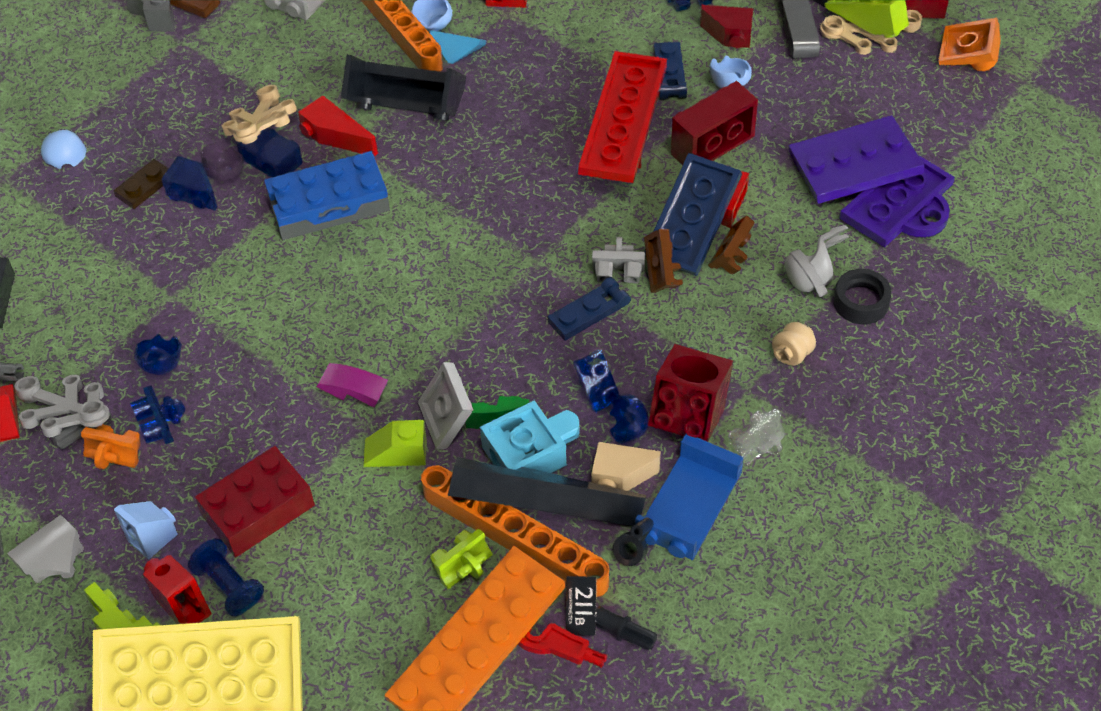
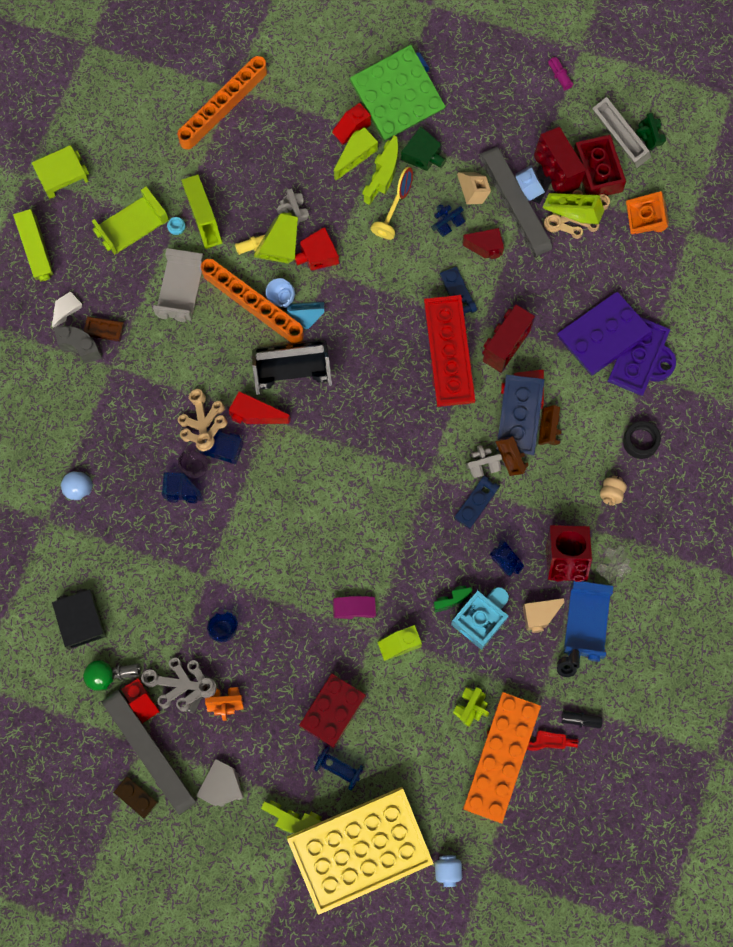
camera: 20 degrees left, 20 degrees up
(141, 184) = (145, 495): dark brown plate -> none
(146, 526) = (276, 751): light blue slope -> none
(149, 406) = (235, 665): clear blue hips -> none
(169, 578) = (318, 791): red torso -> none
(327, 195) = (275, 469): blue piece -> none
(445, 405) = (421, 608): light grey plate -> none
(529, 535) = (505, 676): orange beam -> none
(544, 492) = (505, 651): black slope -> none
(581, 605) = (553, 715): black sticker -> none
(630, 418) = (534, 579): clear blue hair -> none
(729, 71) = (504, 282): light blue hair -> none
(814, 271) = (609, 432): light grey hair -> none

